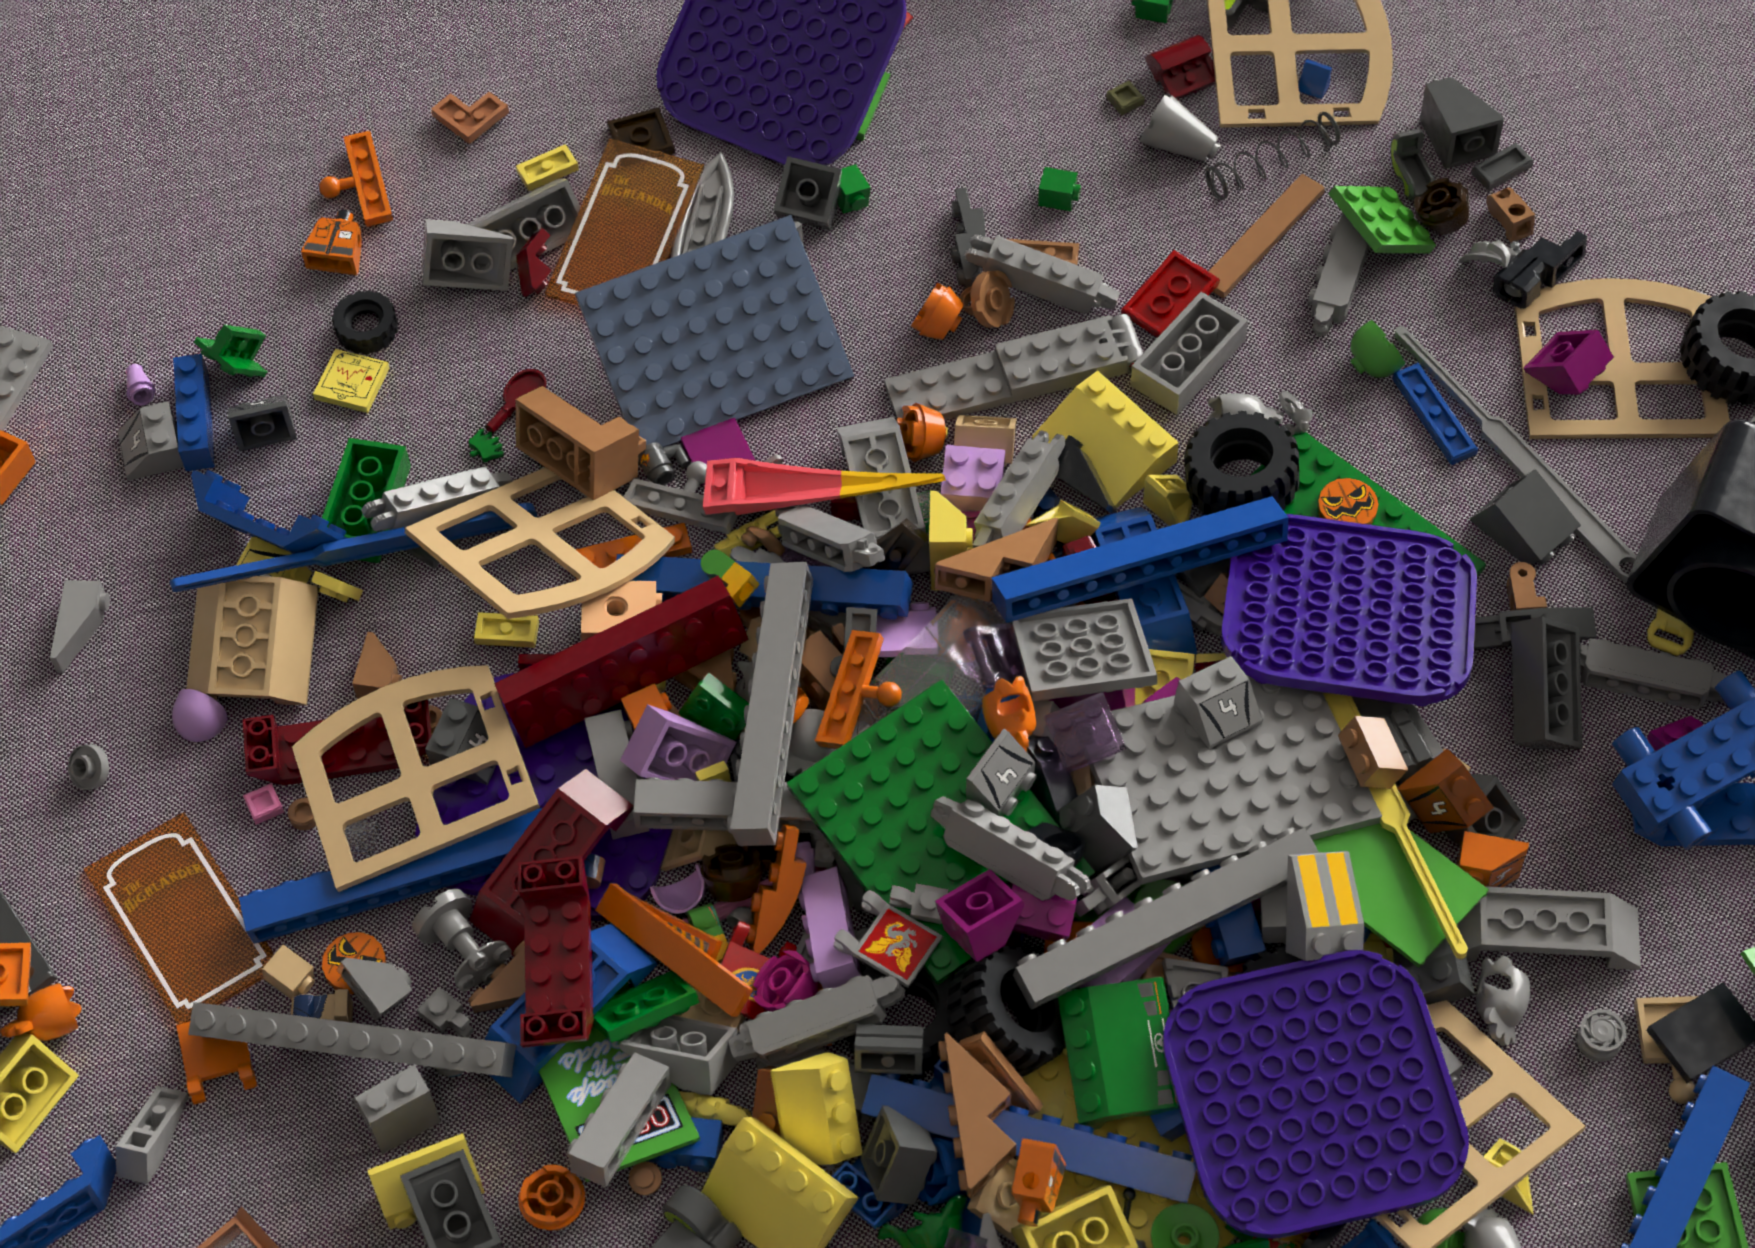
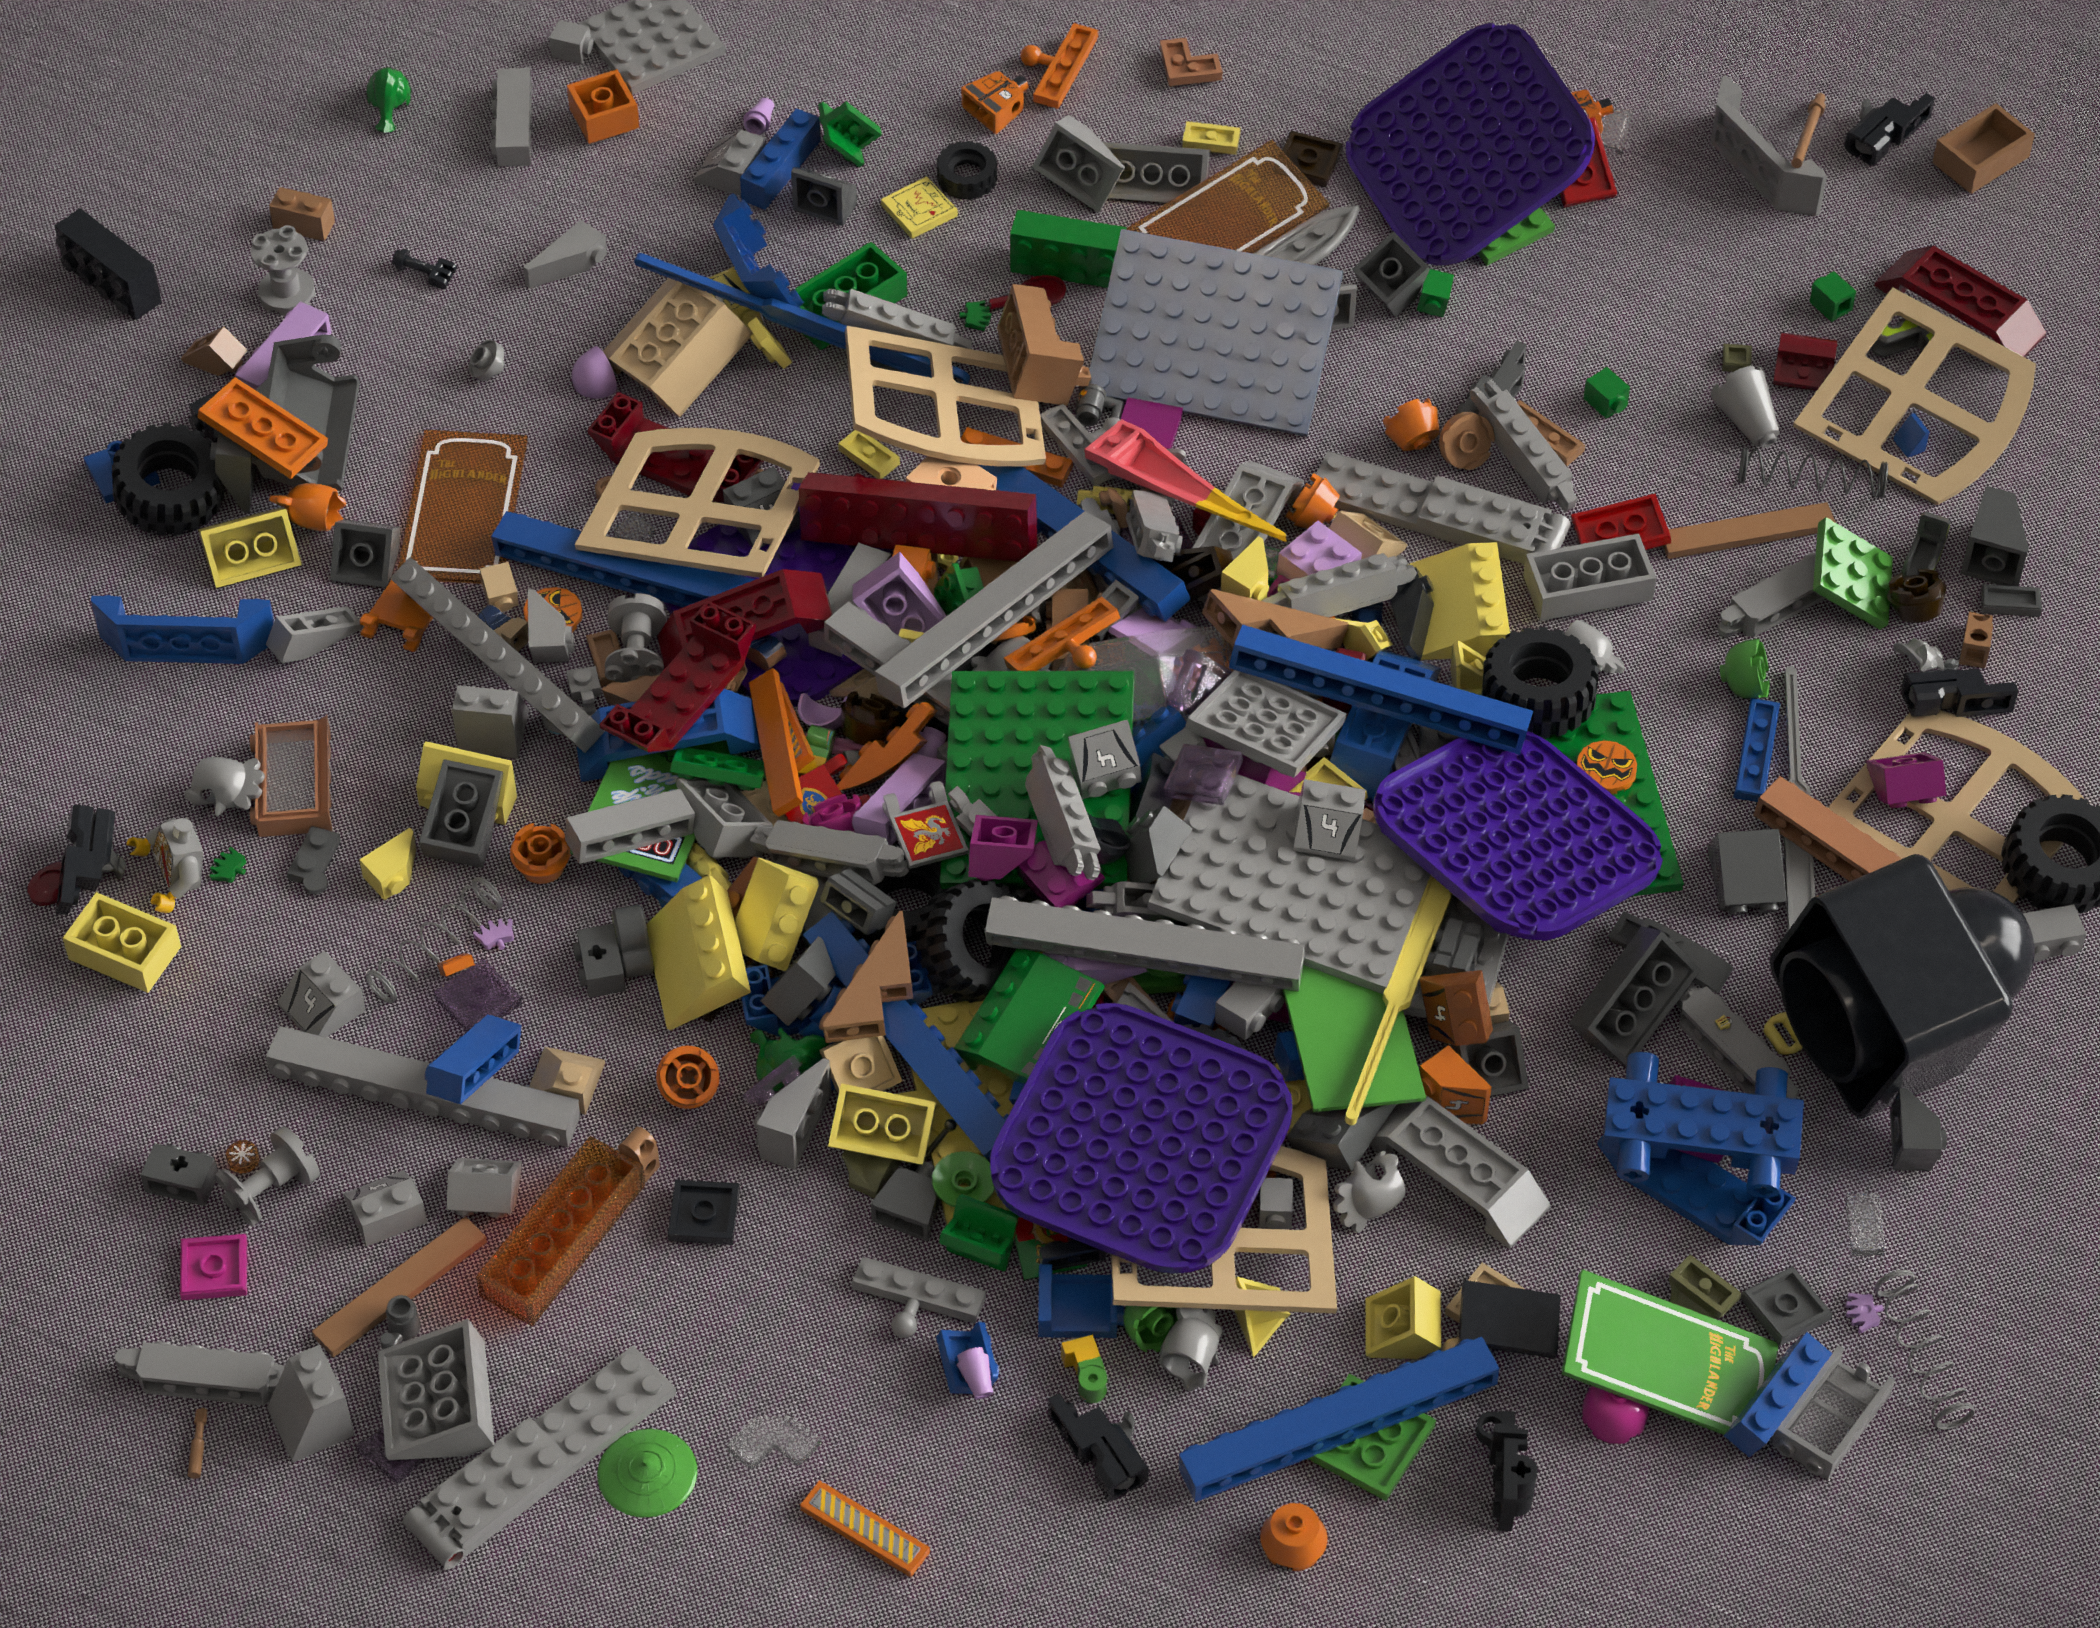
camera: 35 degrees right, 5 degrees down
(132, 1024) = (364, 552): none -> dark grey slope
(263, 803) = (587, 465): bright pink tile -> none
(374, 668) = (747, 416): medium nougat slope -> none
(434, 968) = (600, 646): none -> medium nougat tile
(521, 338) = (1063, 248): none -> green brick
(530, 268) = (1126, 205): dark red slope -> none
(645, 1178) = (621, 887): medium nougat plate -> none
(737, 580) = (1055, 506): leg -> none
(992, 1059) = (925, 974): medium nougat tile -> none
(1015, 715) = (1156, 732): orange piece -> none
(1037, 1179) = (879, 1055): orange torso -> none
(1296, 411) = (1635, 680): light grey piece -> none
(1322, 906) = (1270, 1009): light grey slope -> none
(1372, 752) = (1417, 933): medium nougat brick -> none
(1521, 588) = (1695, 918): medium nougat leg -> none
(1576, 451) = (1821, 831): none -> nougat brick
(1600, 1036) = (1430, 1267): light grey wheel -> none
(1623, 1095) = (1404, 1321): none -> light yellow slope
(1632, 660) = (1723, 1023): none -> light yellow piece

